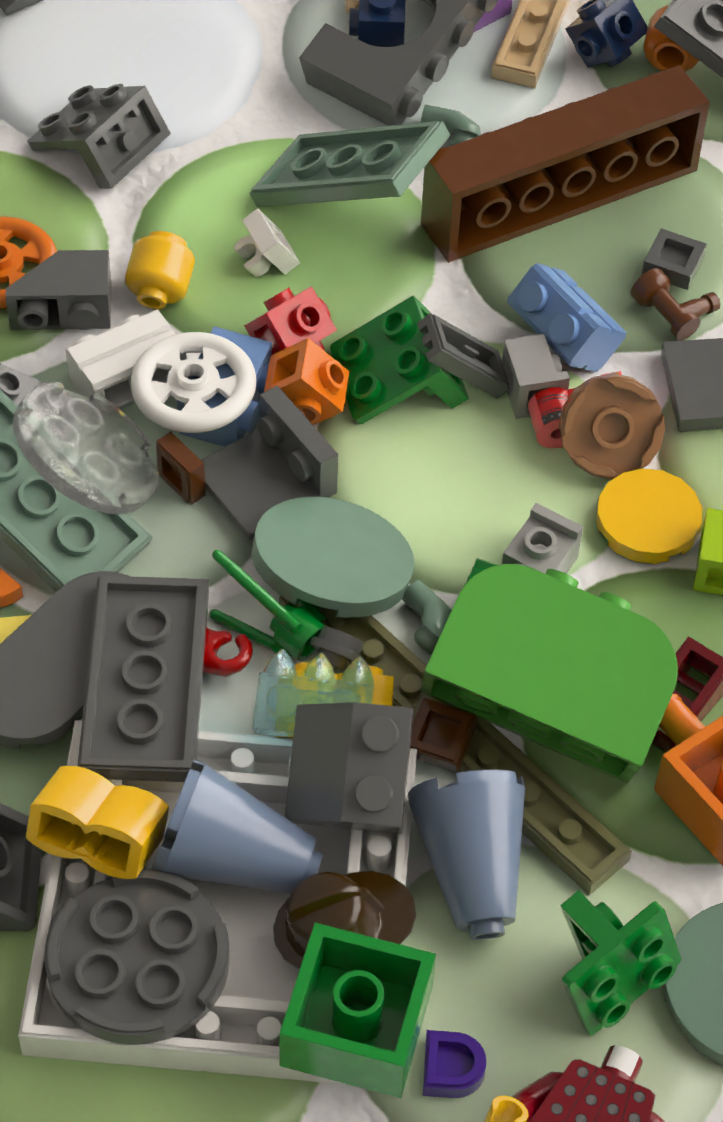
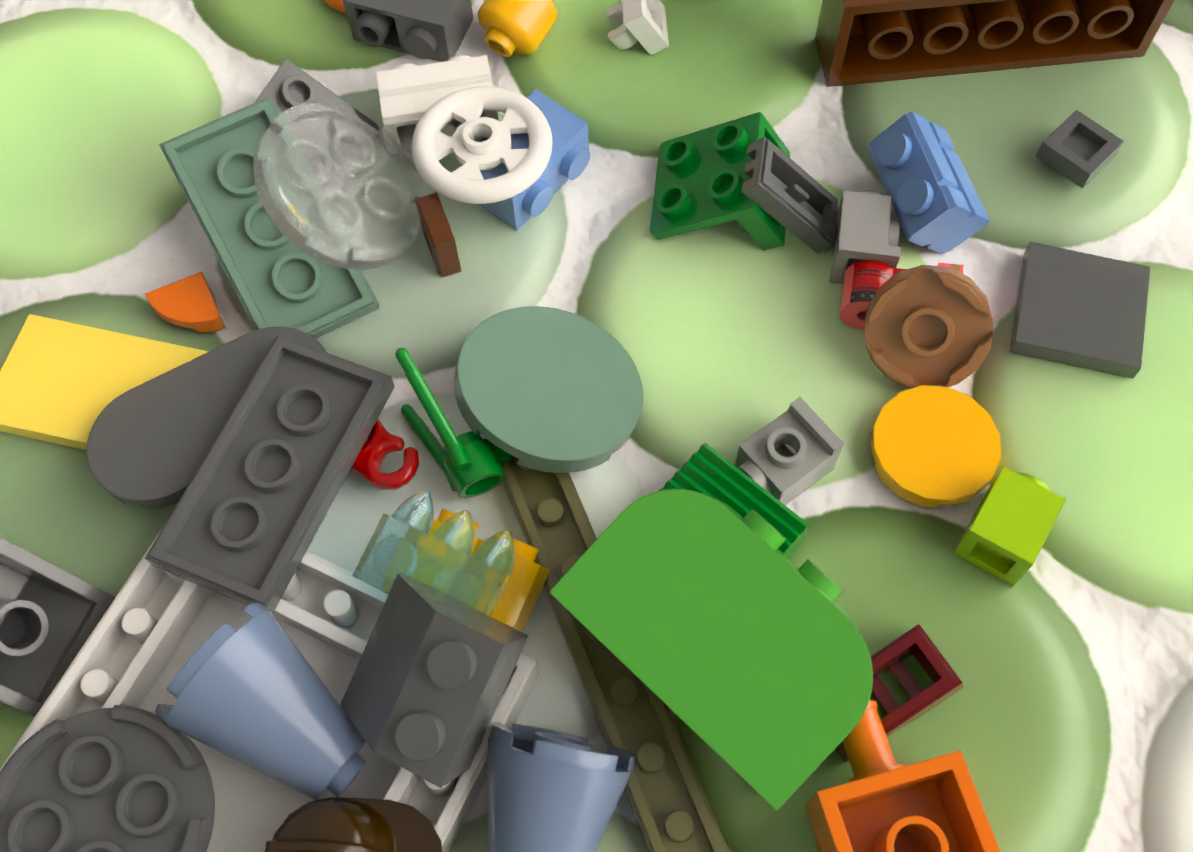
camera: 25 degrees right, 10 degrees up
(98, 822) = (118, 637): yellow brick -> none
(271, 464) = (530, 259): dark grey bracket -> none
(293, 320) = (622, 110): brick -> none
(309, 380) = (608, 179): orange brick -> none
(337, 647) = (501, 503): dark grey plate -> none
(433, 614) = (635, 477): sand green arm -> none
(442, 734) = (570, 653): reddish brown tile -> none
(653, 289) = (1041, 179): reddish brown piece -> none

